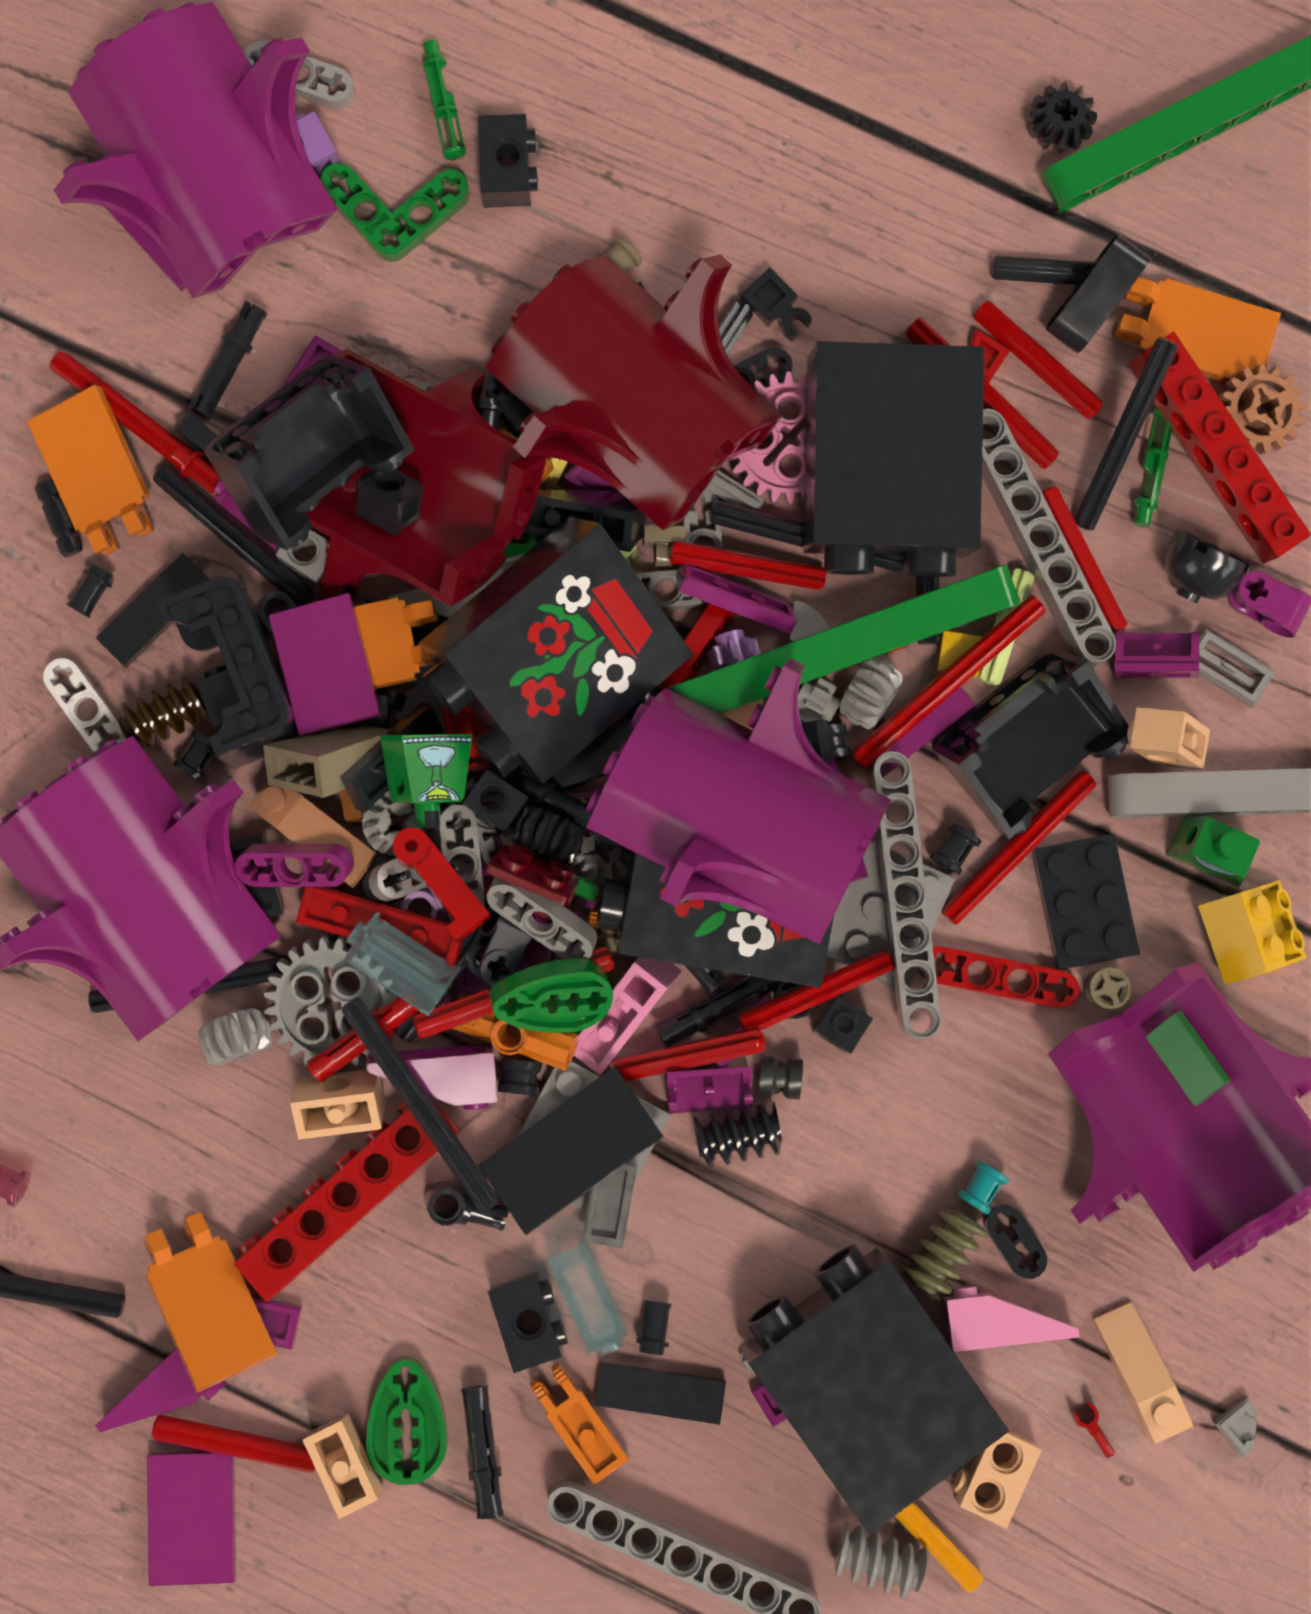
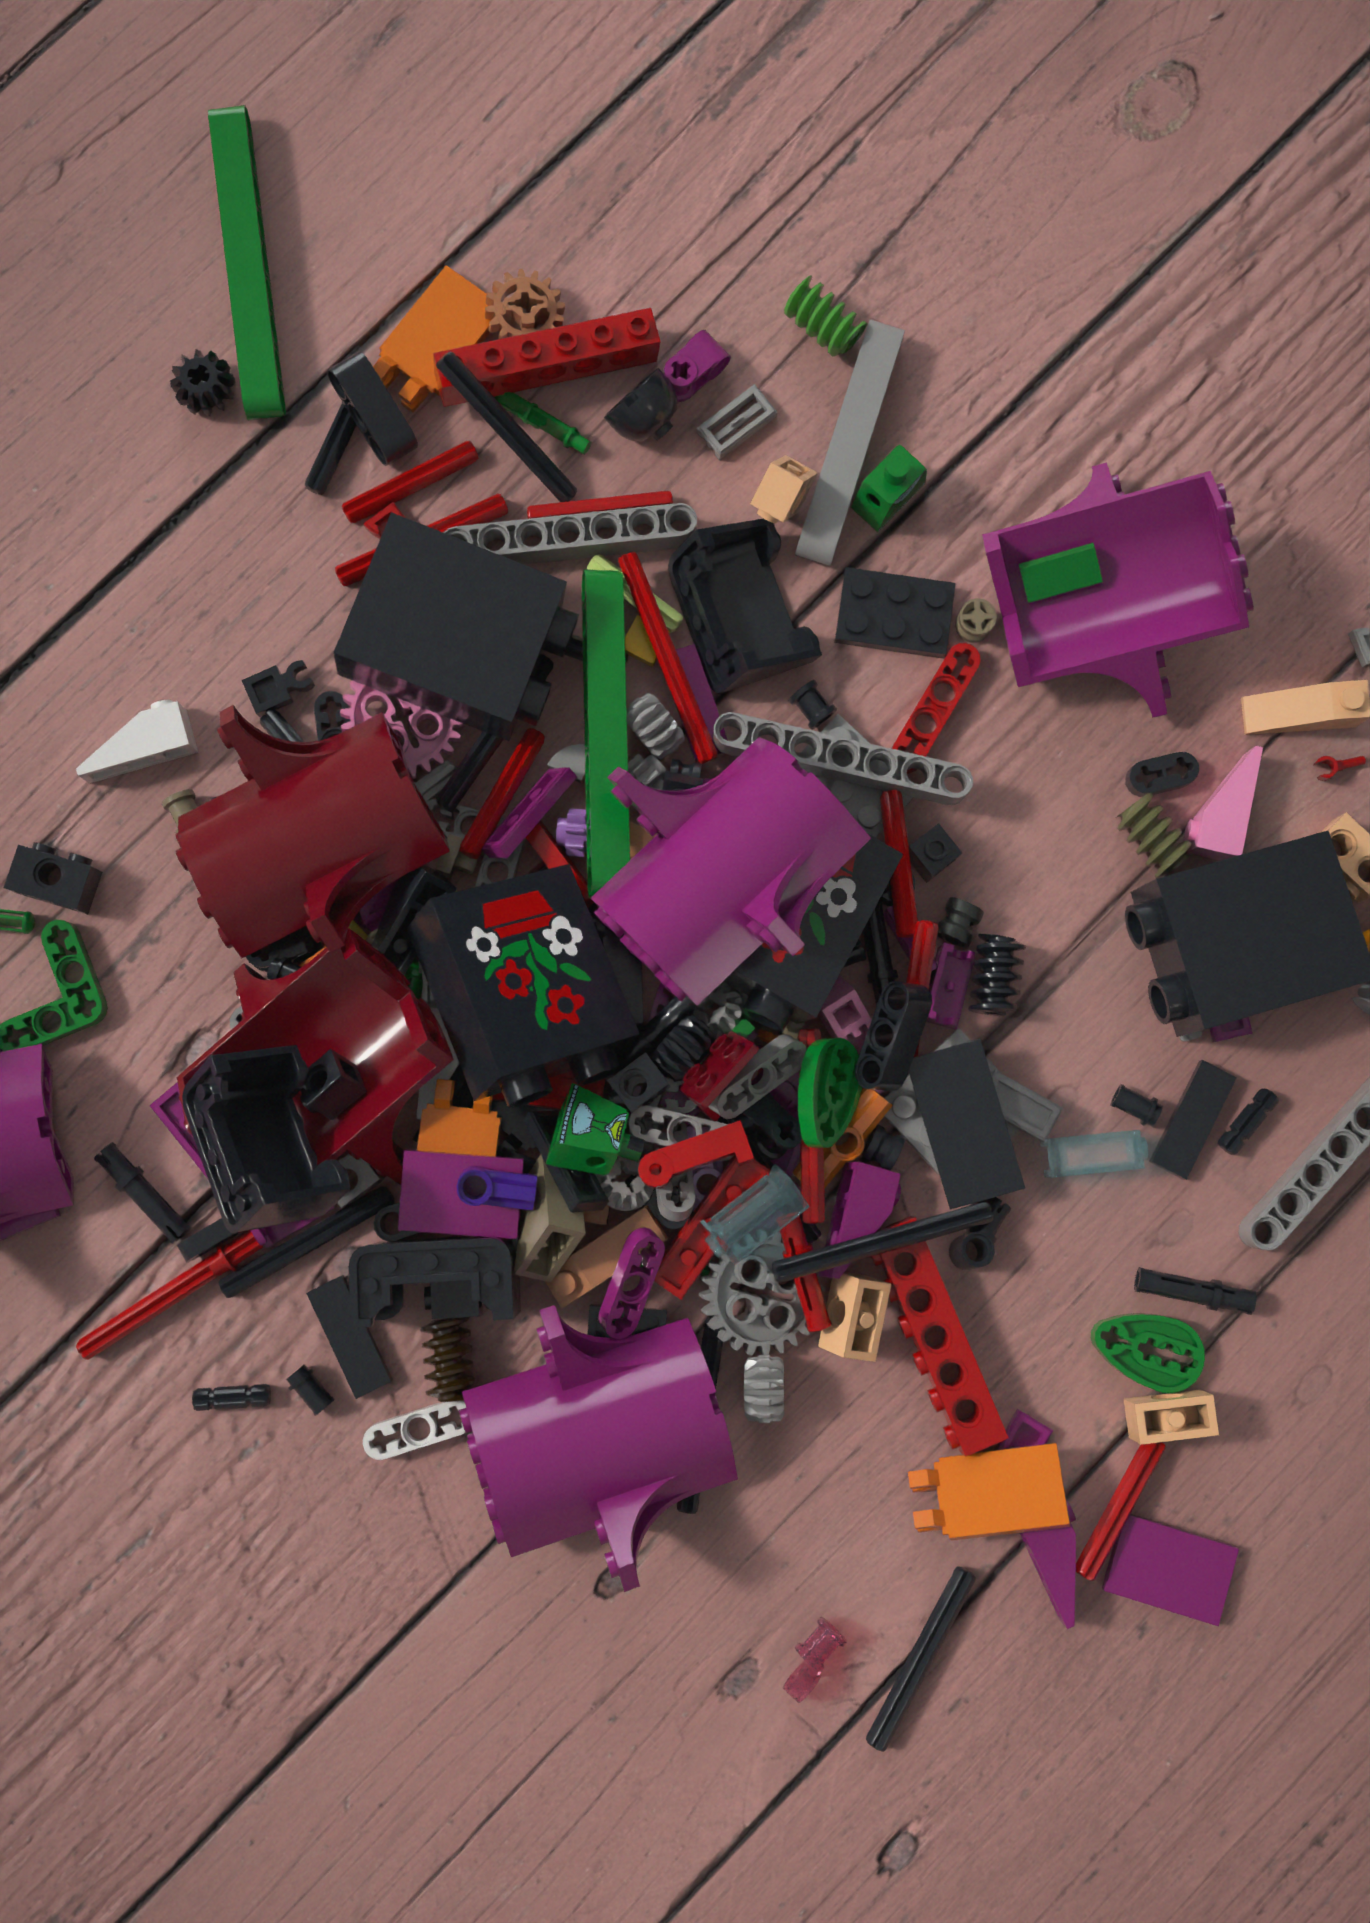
camera: 75 degrees left, 0 degrees up
(92, 468) = (196, 1350): orange tile -> none
(197, 757) = (498, 1340): black bush -> none
(340, 701) = (502, 1189): none -> dark purple piece
(525, 1347) = (1119, 1220): black brick -> none
(581, 1427) = (1201, 1197): orange hinge -> none
(633, 1044) = (893, 1036): none -> black beam
(675, 197) = (144, 741): none -> white slope
(678, 1452) = (1248, 1121): none -> black axle
(983, 1186) = (1108, 784): teal bush -> none
(1018, 847) = (831, 653): red axle -> none
(1157, 655) = (706, 473): magenta hinge -> none
(1253, 932) = (969, 483): yellow slope -> none

